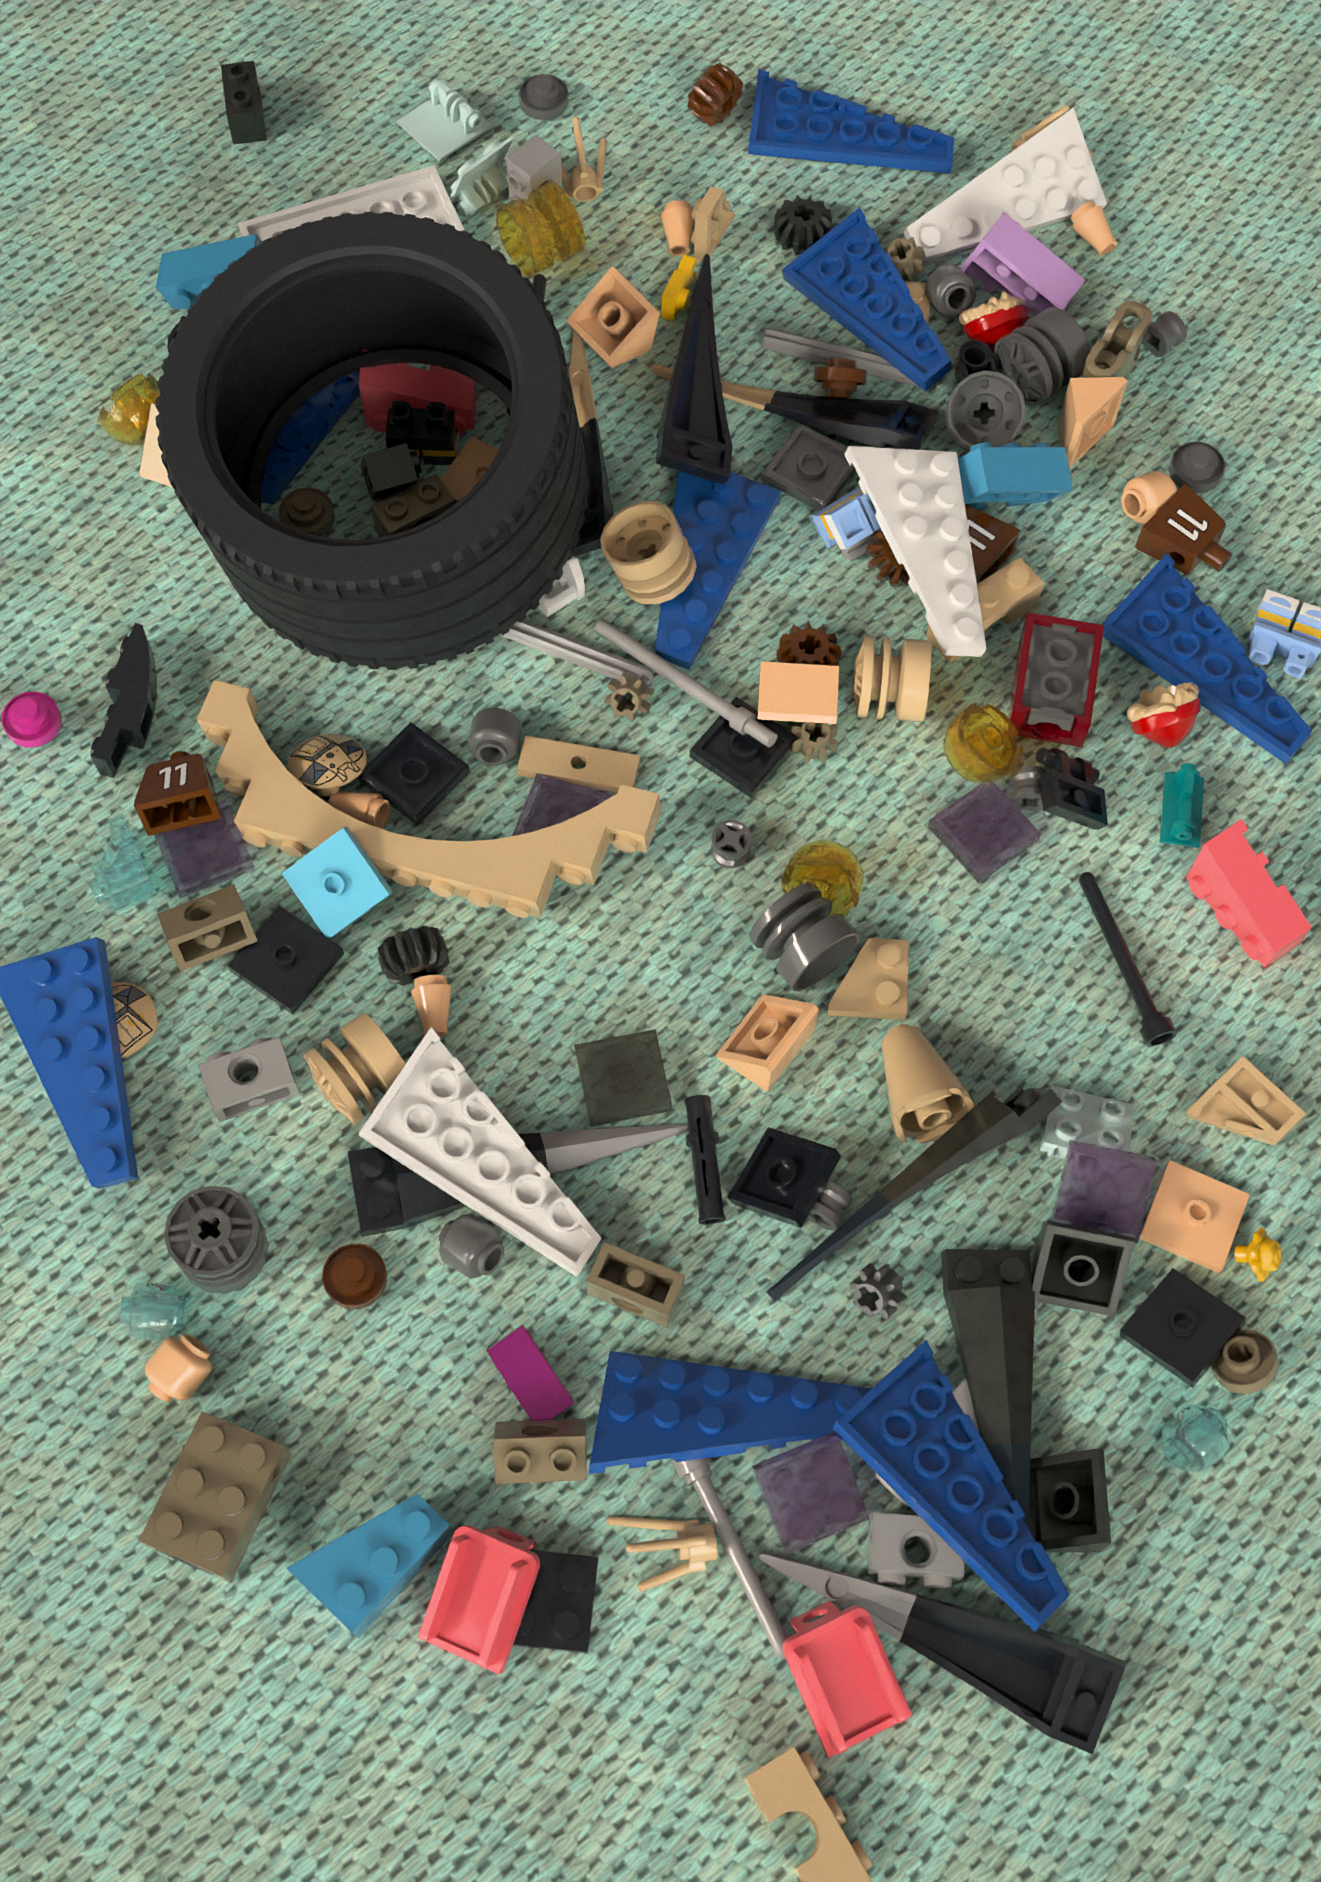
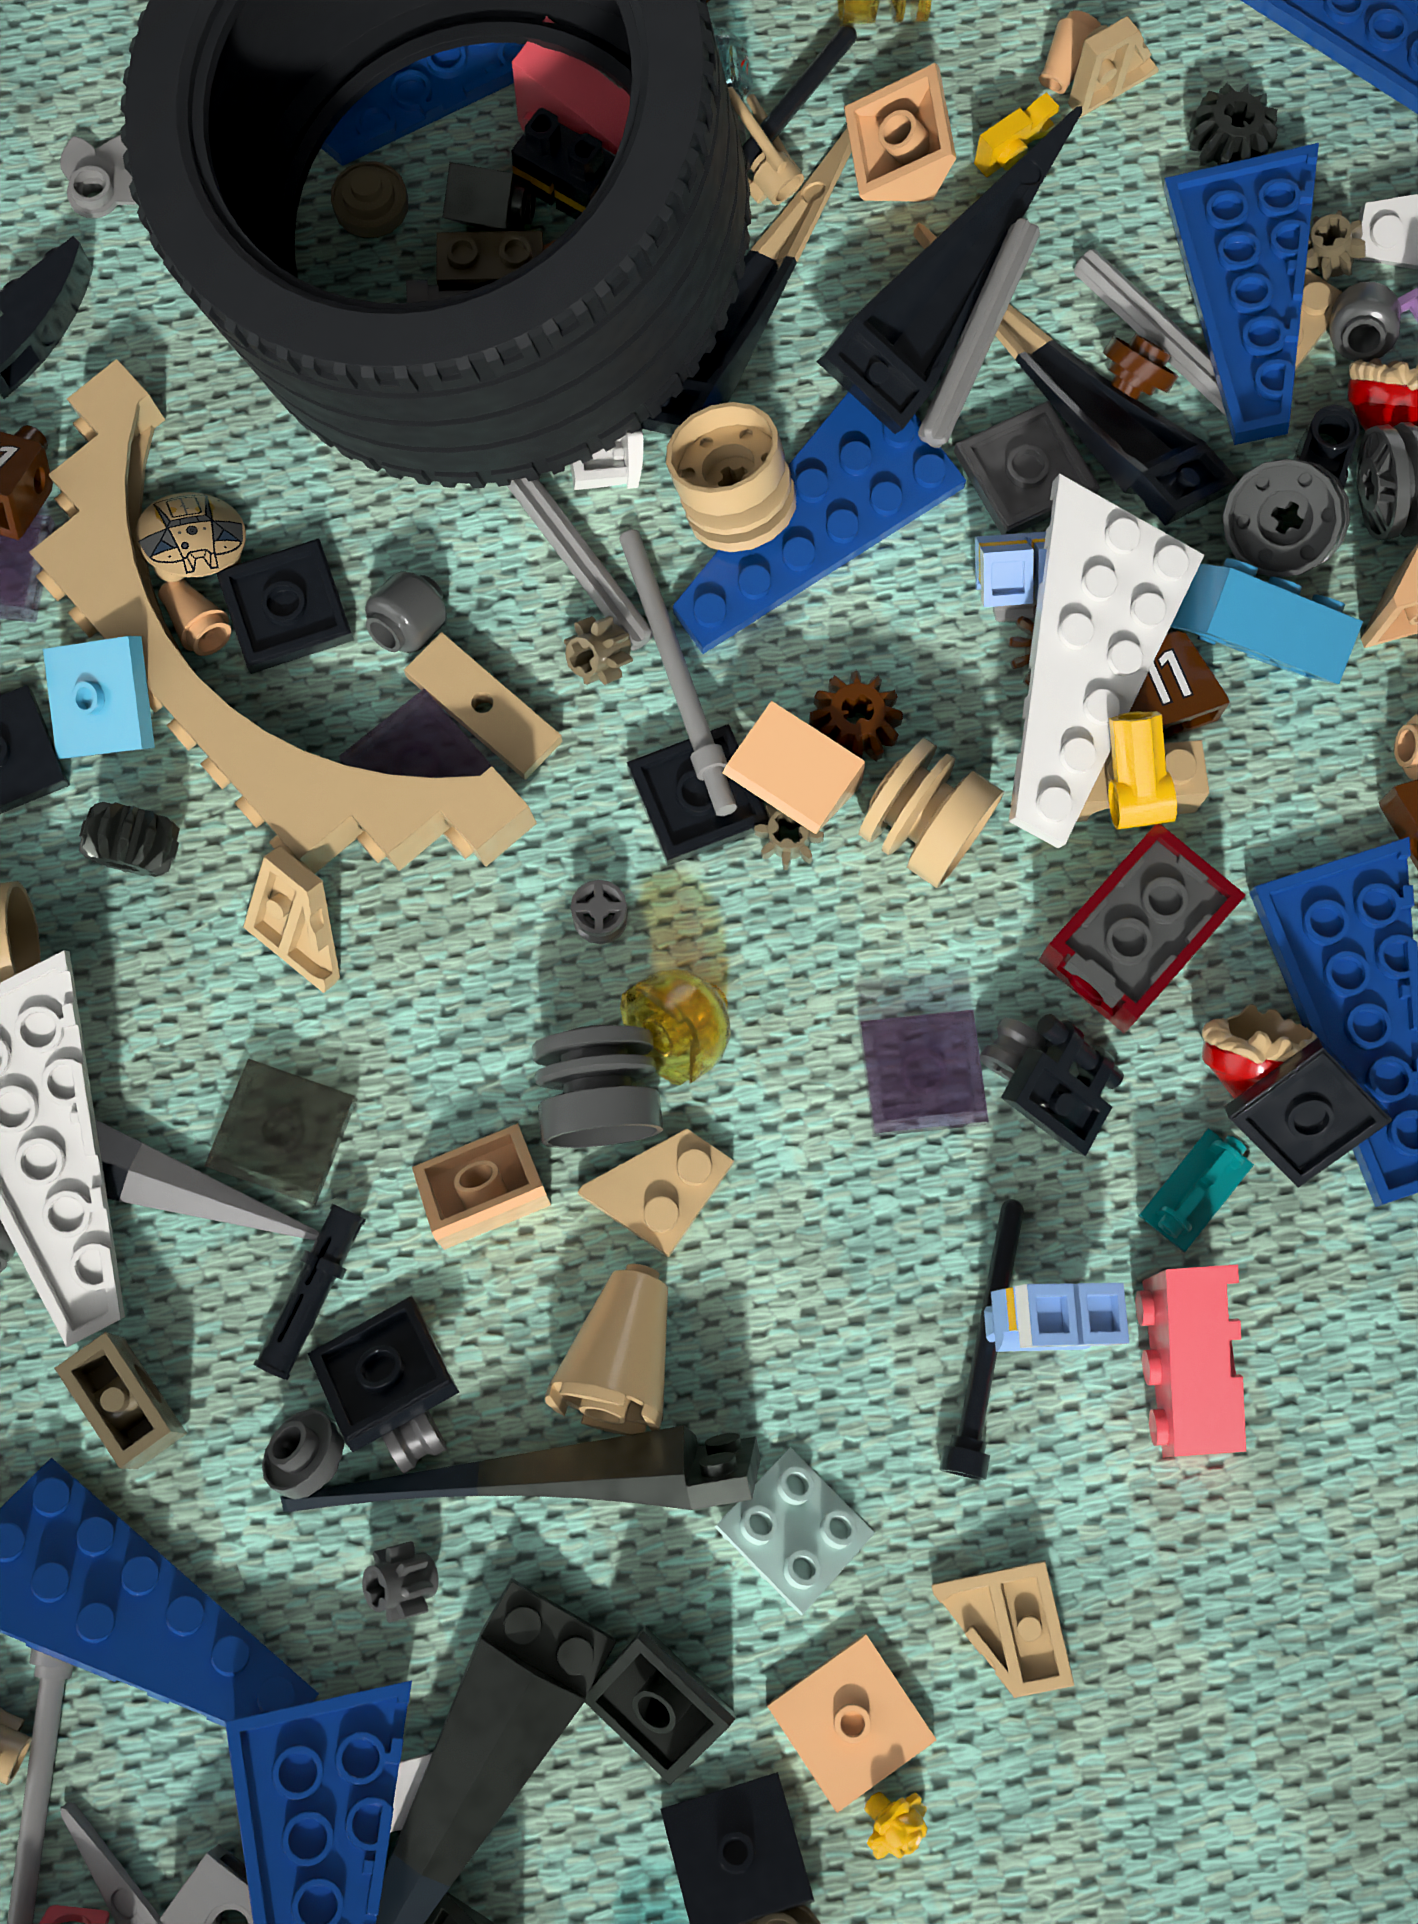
camera: 30 degrees right, 10 degrees up
(121, 579) = (93, 171): none -> light grey plate
(432, 1002) = (121, 911): light nougat cone -> none
(549, 945) = (293, 918): none -> tan wing
(735, 405) = (978, 333): none -> light grey axle
(768, 1252) = (303, 1454): none -> dark grey plate
(810, 1492) = (160, 1776): clear purple plate -> none
(982, 744) = (988, 963): clear yellow cylinder -> none
(1006, 593) = (1141, 786): none -> yellow piece
(1104, 1189) = (752, 1628): clear purple plate -> none
(1157, 912) = (1057, 1317): none -> light blue hips
(1218, 726) = (1308, 1113): none -> black plate

